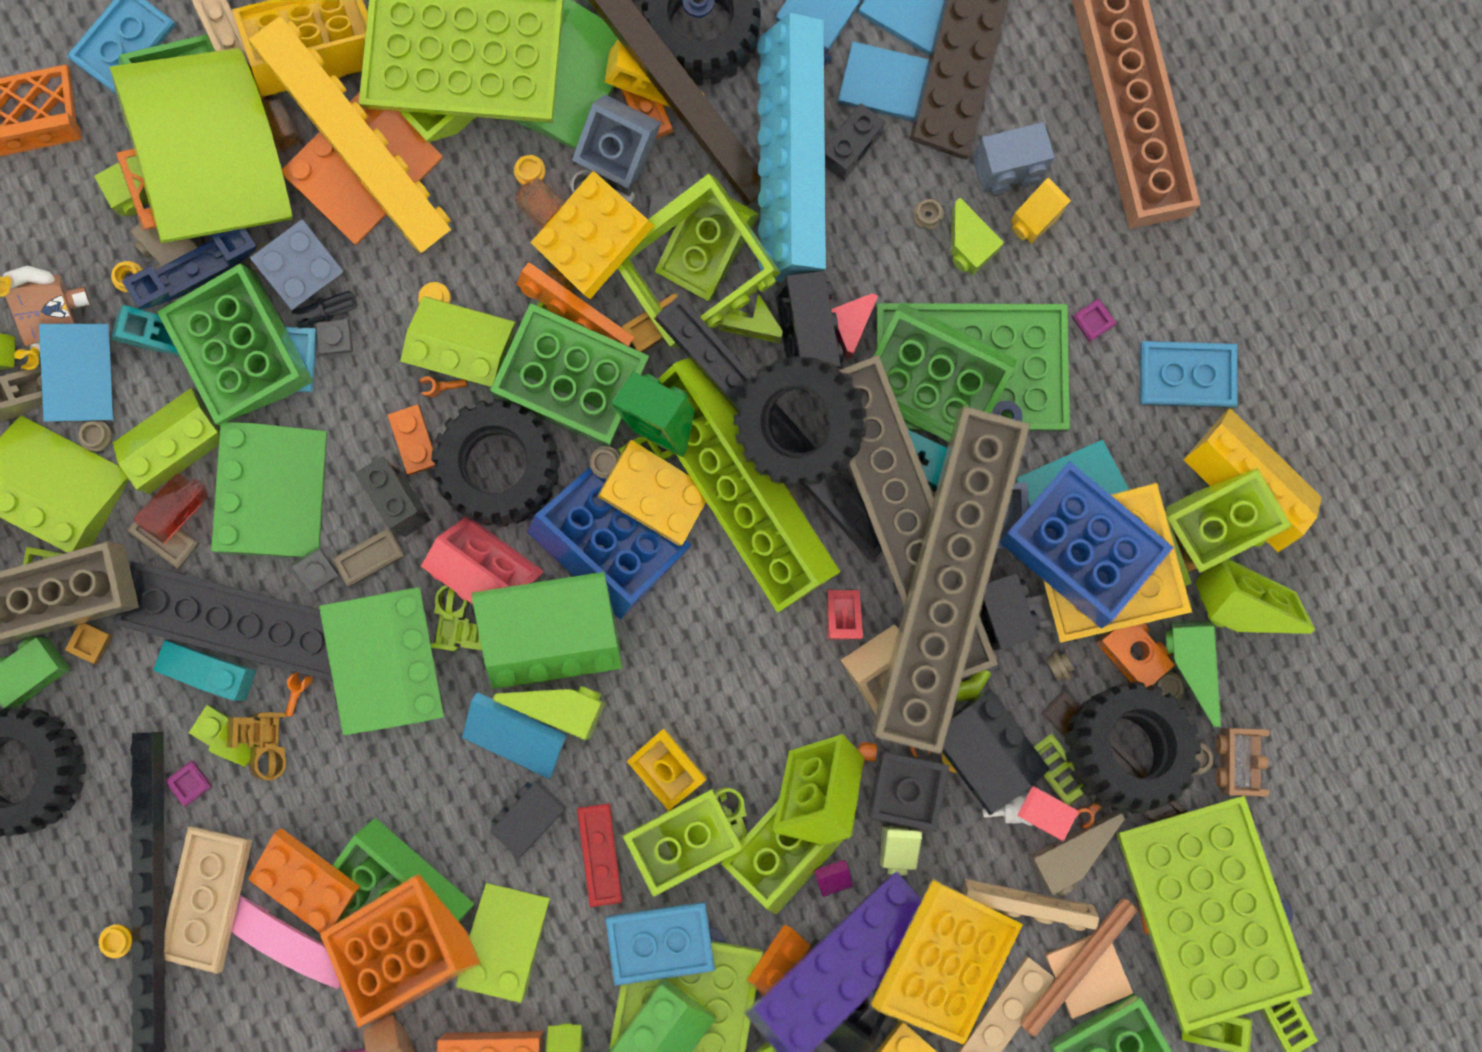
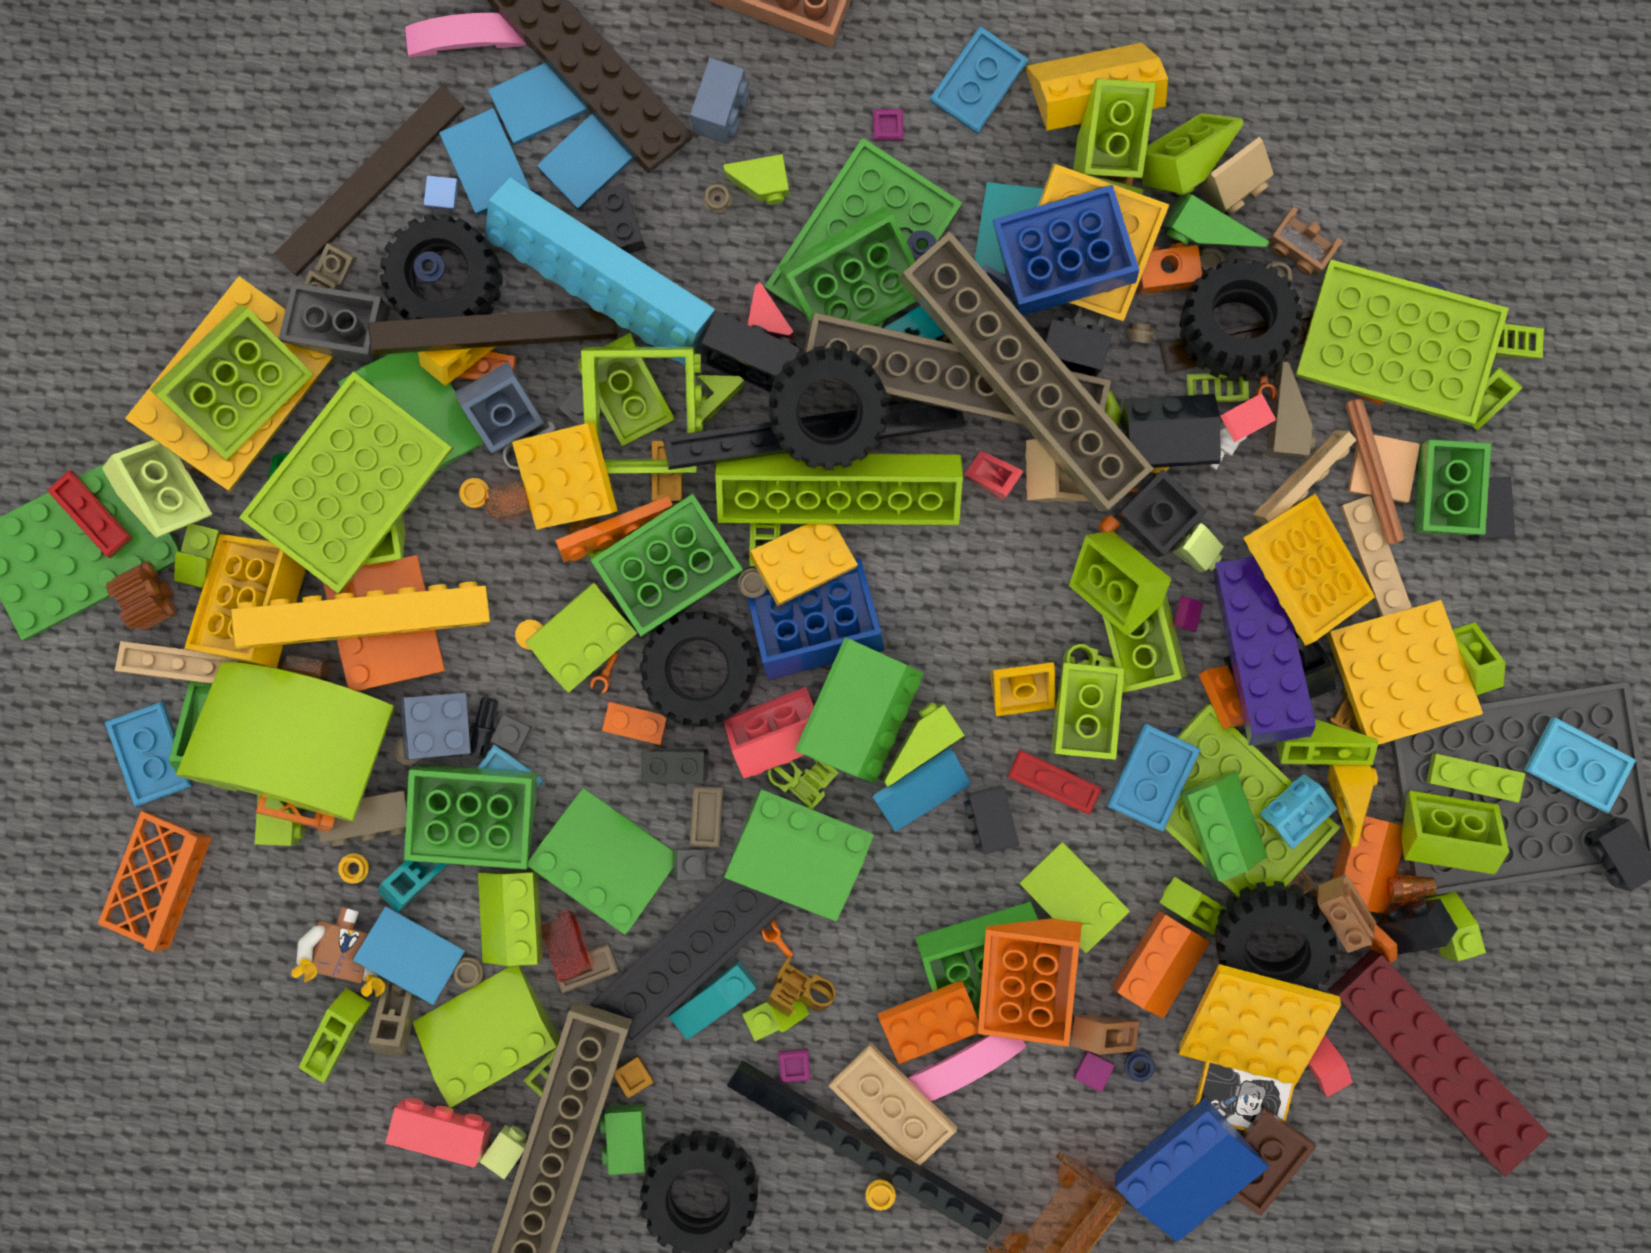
camera: 55 degrees left, 5 degrees up
(190, 270) = (386, 812): dark blue slope -> none
(656, 412) = (743, 516): green slope -> none
(1039, 211) = (775, 109): yellow slope -> none
(1259, 662) = (1238, 178): none -> tan slope

